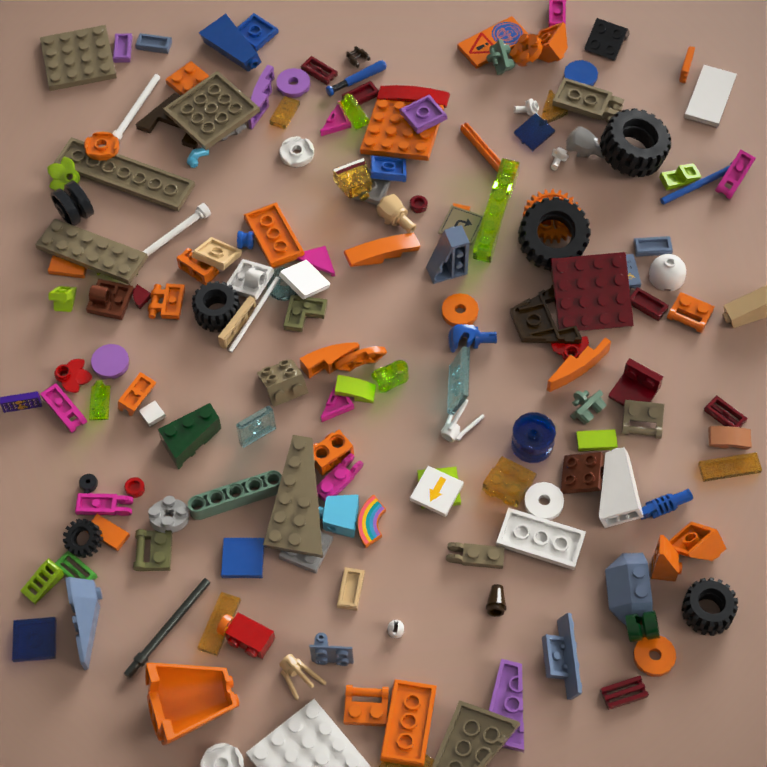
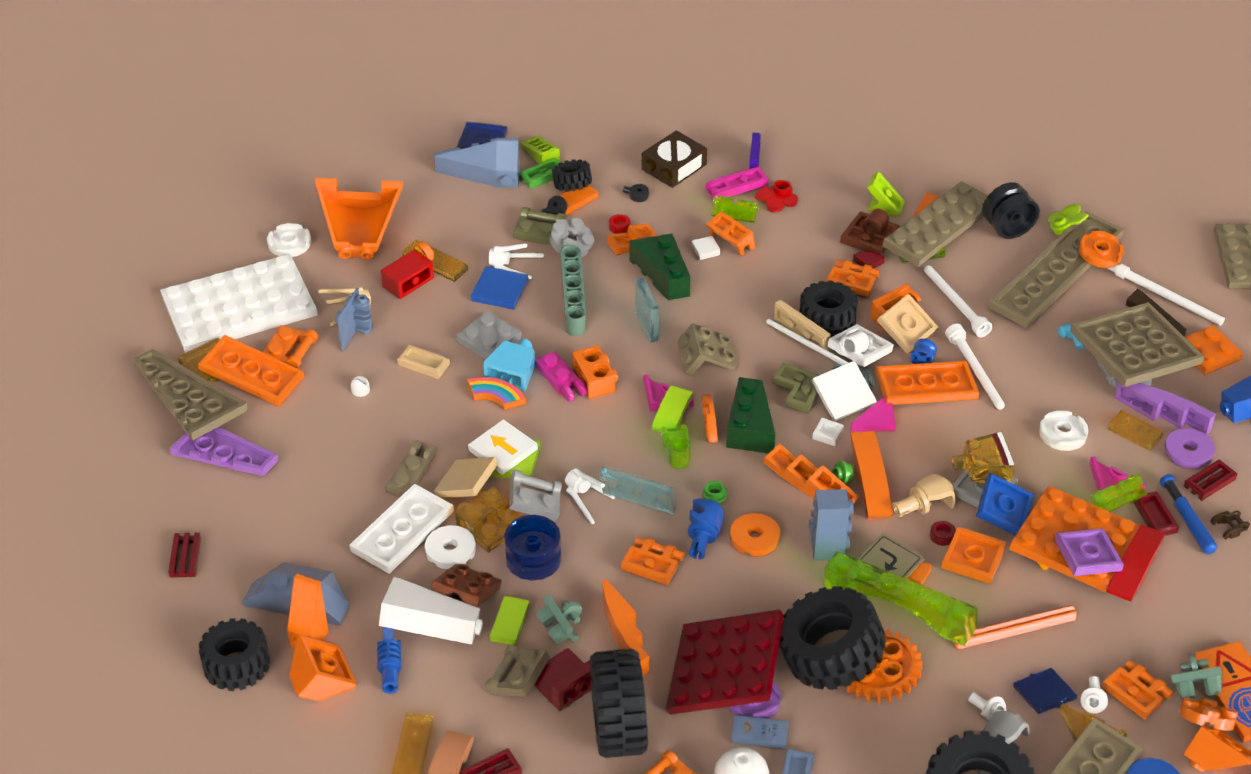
camera: 105 degrees right, 15 degrees down
(39, 463) = (674, 158): none -> dark brown brick
(102, 504) = (607, 197): dark pink hinge -> none
(110, 361) = (786, 226): medium lavender tile -> none
(121, 539) = (556, 205): none -> black piece
(141, 658) = (426, 203): pearl dark grey bar -> none
(153, 471) = (620, 242): none -> orange slope
(207, 566) = (500, 256): none -> white plant
(218, 224) = (957, 336): none -> white piece
(295, 513) = (535, 324): dark tan wing -> none
(326, 358) = (722, 391): orange slope -> none
(342, 287) = (828, 431): none -> white tile
(349, 329) = (750, 418): none -> dark green wedge
(385, 267) = (843, 471): none -> bright green plate
(396, 287) = (804, 474): none -> orange slope
(429, 338) = (715, 491): none -> bright green plate
(435, 181) = (974, 555): none -> orange plate
(478, 506) = (466, 477): none -> tan tile
(484, 451) = (533, 501): none -> light grey plate
(496, 602) = (346, 470): dark brown cone -> none
(515, 364) = (650, 565): none -> orange plate
(519, 89) = (1133, 693): none -> orange plate
(536, 323) = (701, 600): dark brown wing -> none
(561, 656) = (252, 504): sand blue bracket -> none
(565, 349) = (659, 631): red plate -> none
(642, 626) = (242, 577): dark green wheel -> none
(648, 304) = (698, 739): dark red tile -> none
(652, 667) = (208, 583): orange tile -> none
(665, 332) = (618, 703): none -> black tyre

